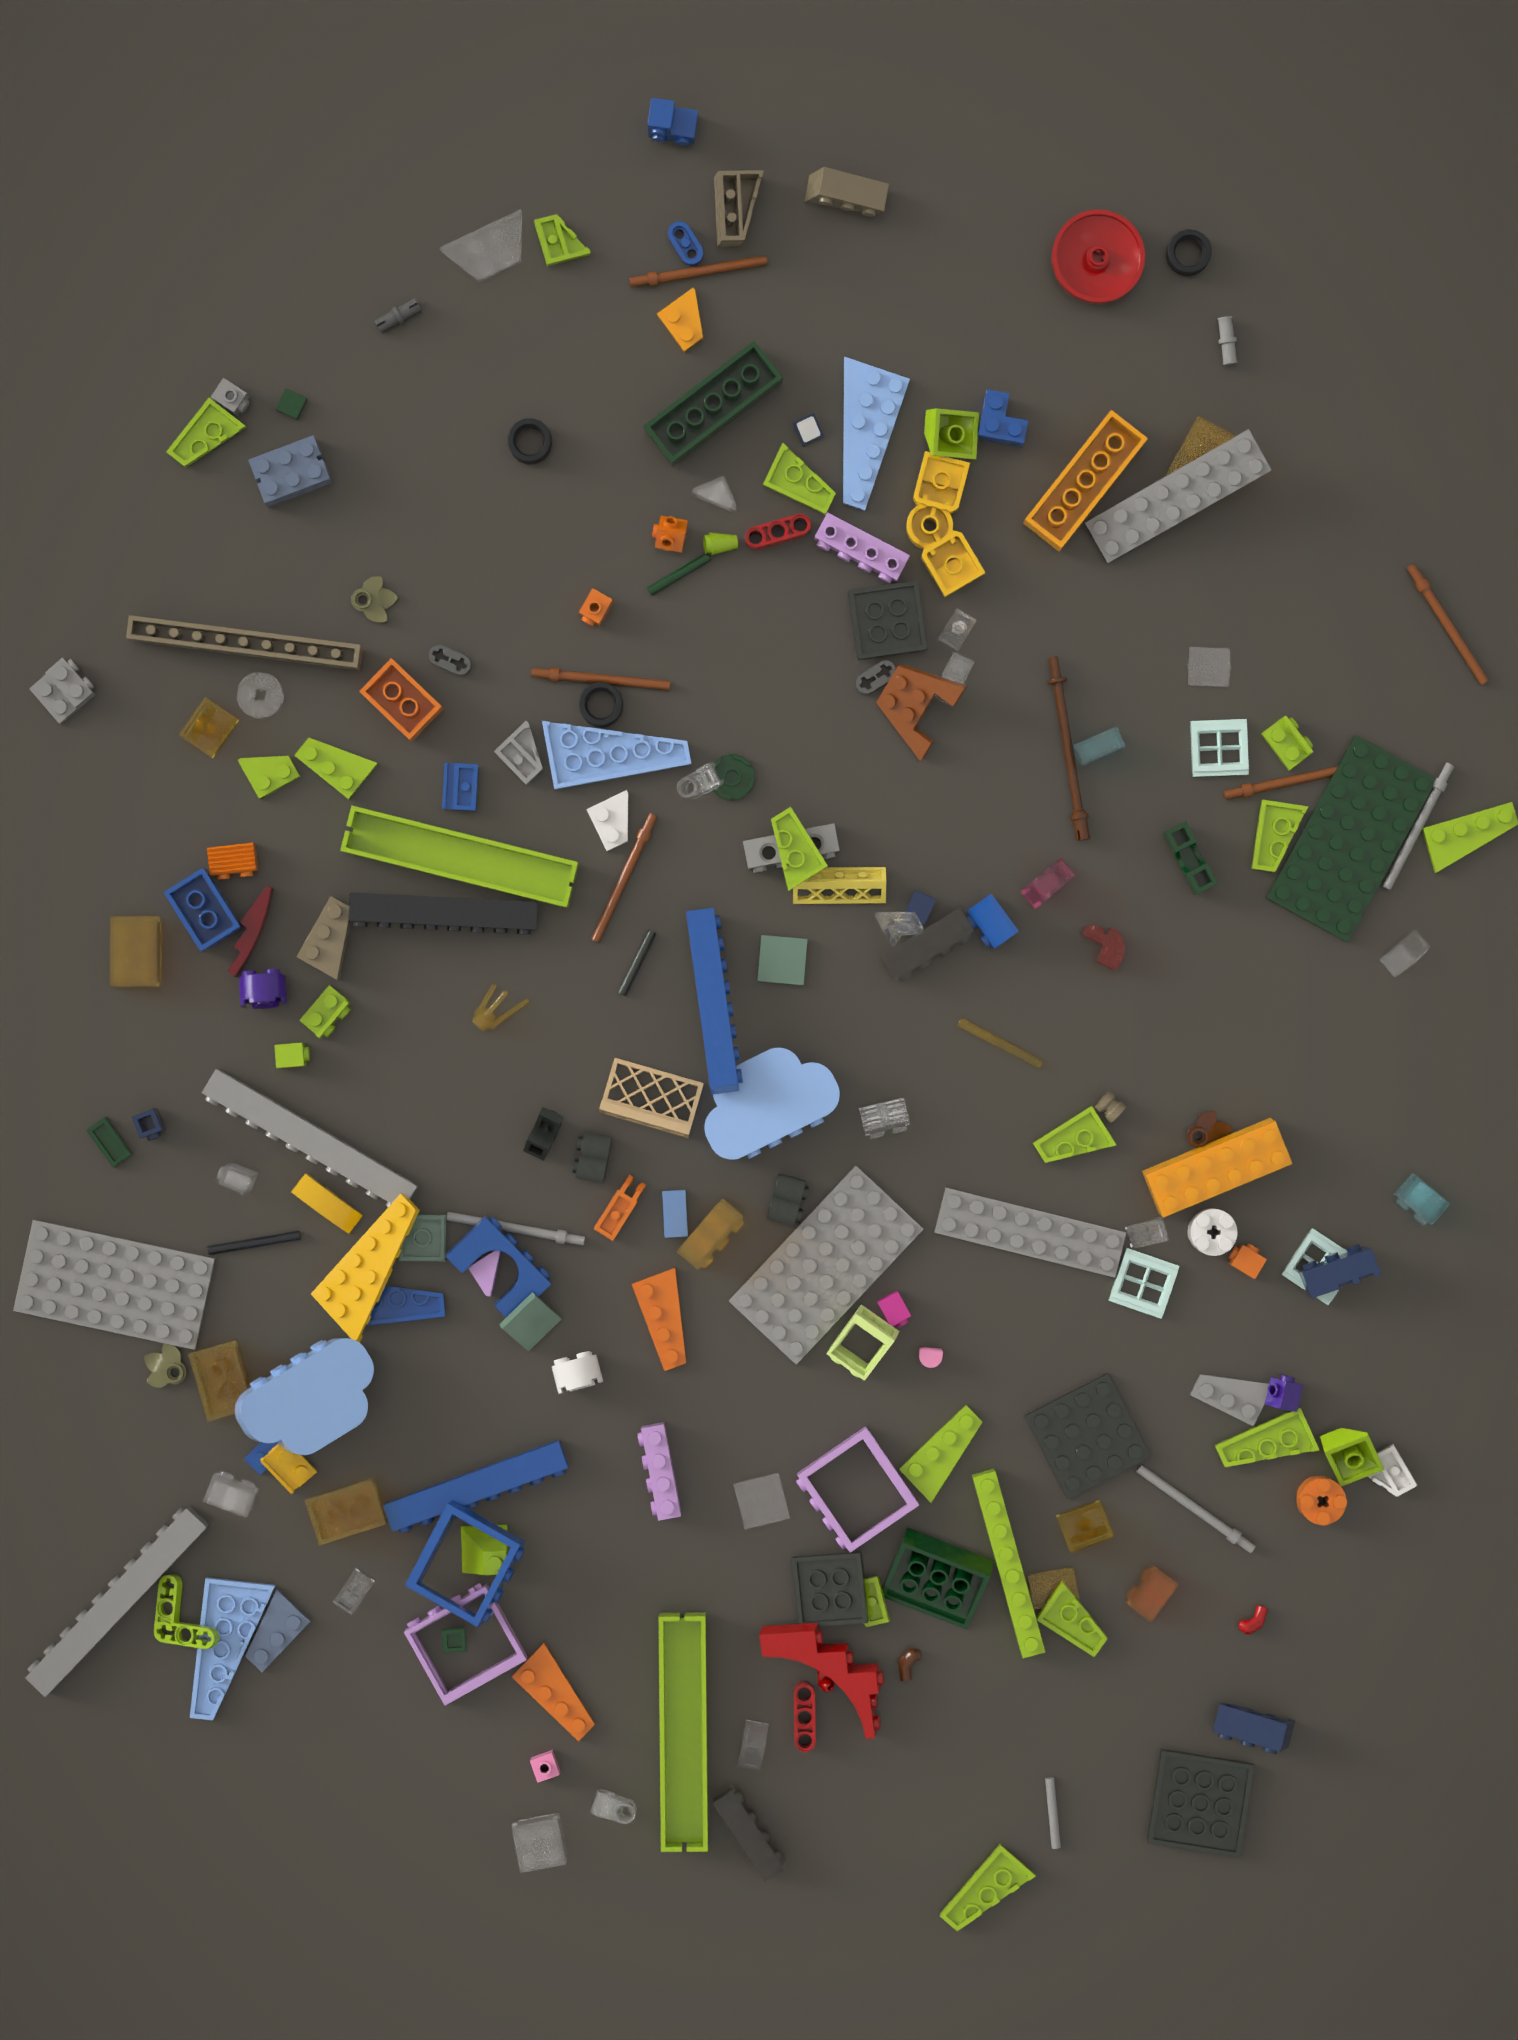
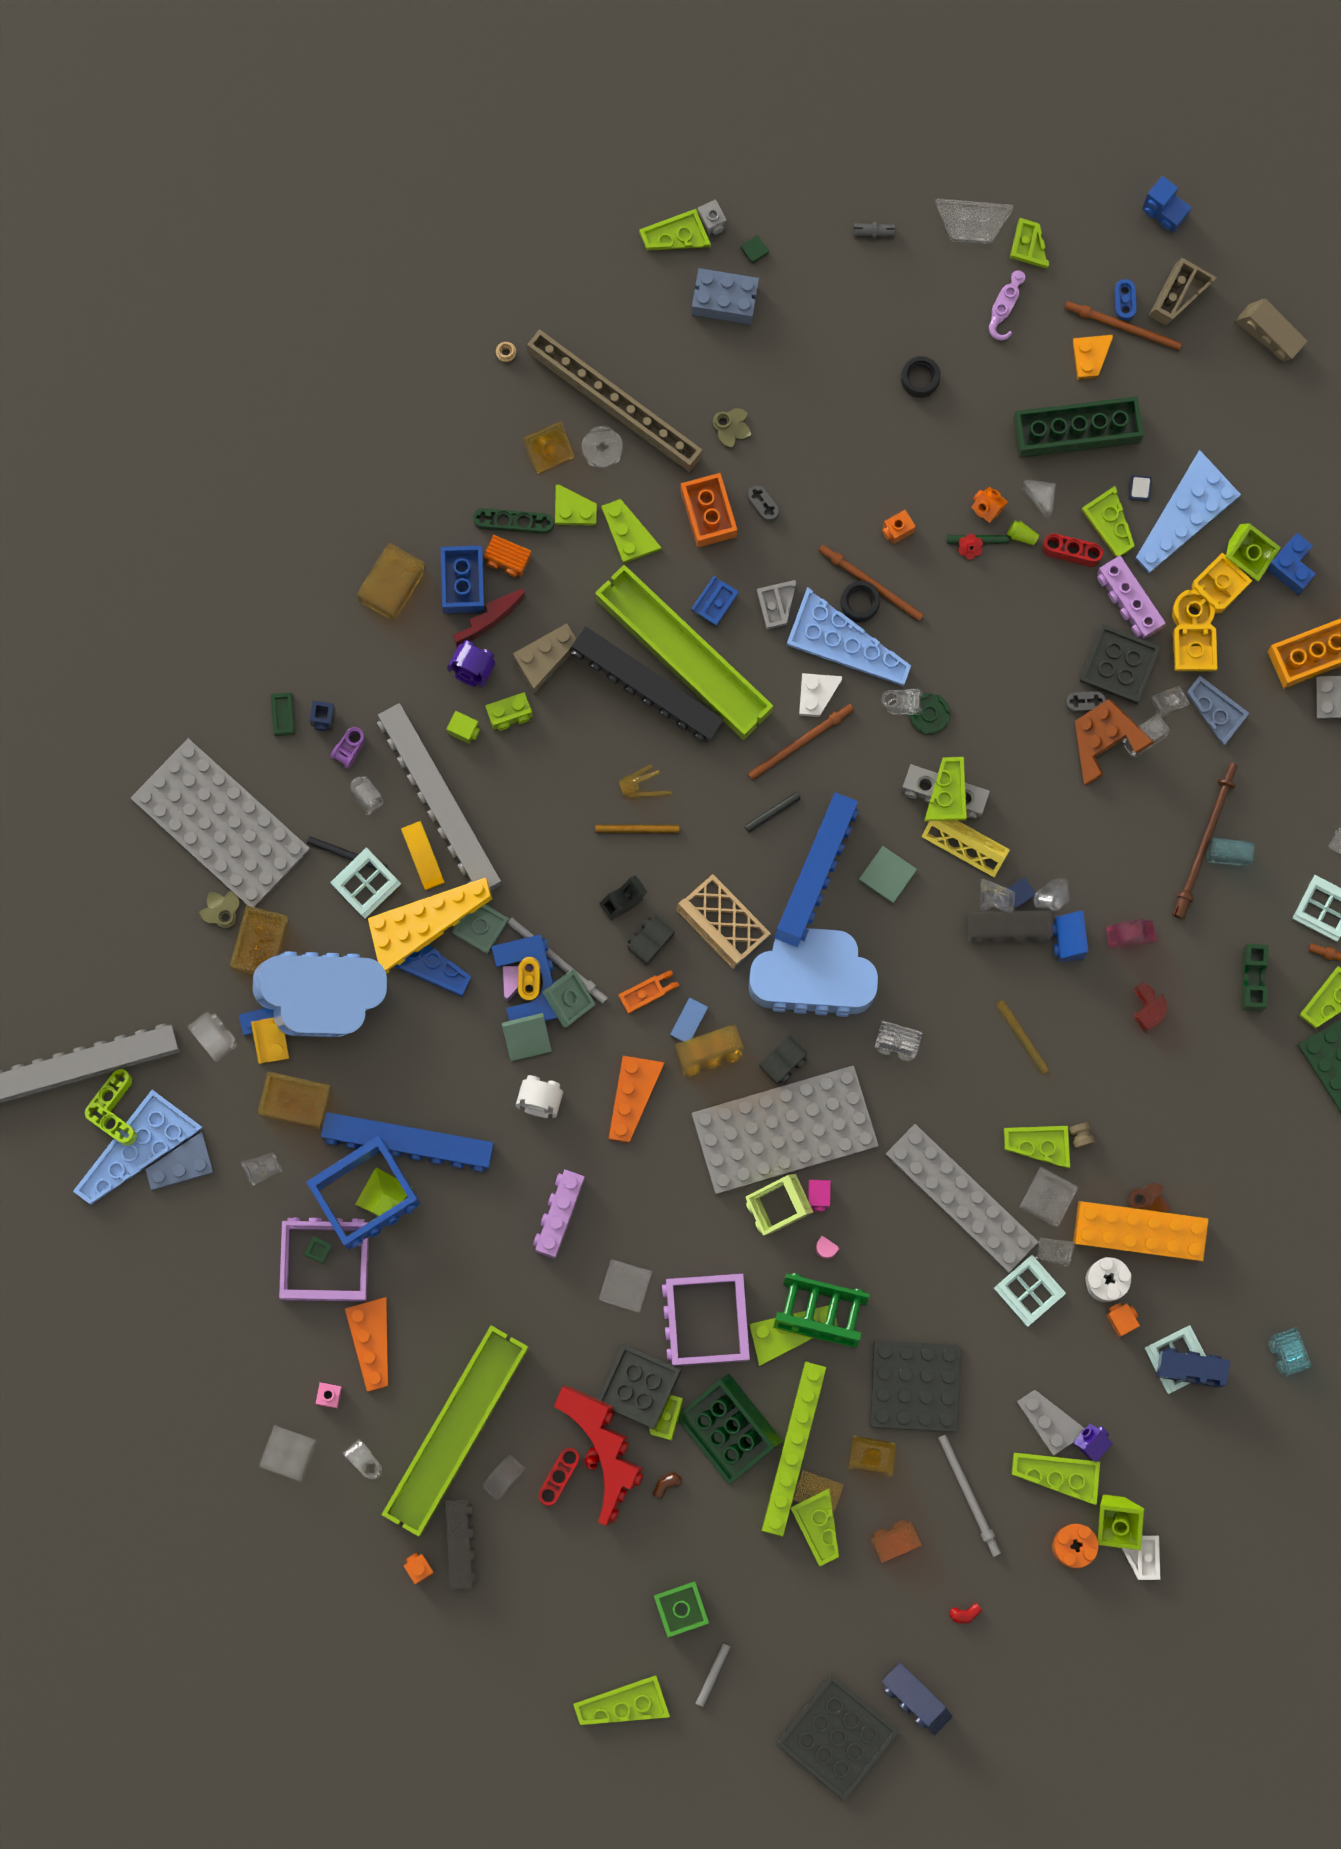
camera: 20 degrees right, 10 degrees down
(63, 690) = (454, 359): light grey plate -> none
(102, 650) = (506, 346): none -> tan plate
(193, 1140) = (348, 748): none -> medium lavender piece
(216, 817) = (513, 525): none -> dark green beam
(308, 1267) = (352, 869): none -> light aqua piece
(499, 1265) = (529, 977): none -> yellow plate
(516, 1055) = (636, 828): none -> pearl gold bar
(548, 1261) = (568, 998): none -> sand green tile
(570, 317) = (1005, 304): none -> lavender piece
(672, 582) = (966, 542): none -> red plant
(724, 1877) = (418, 1568): none -> orange brick
(953, 890) = (1053, 895): none -> clear piece
(954, 1441) = (807, 1325): none -> green fence
(989, 1773) = (681, 1609): none -> bright green brick
(1007, 610) = (1217, 709): none -> sand blue wing
(1112, 1186) = (1048, 1197): none -> clear brick

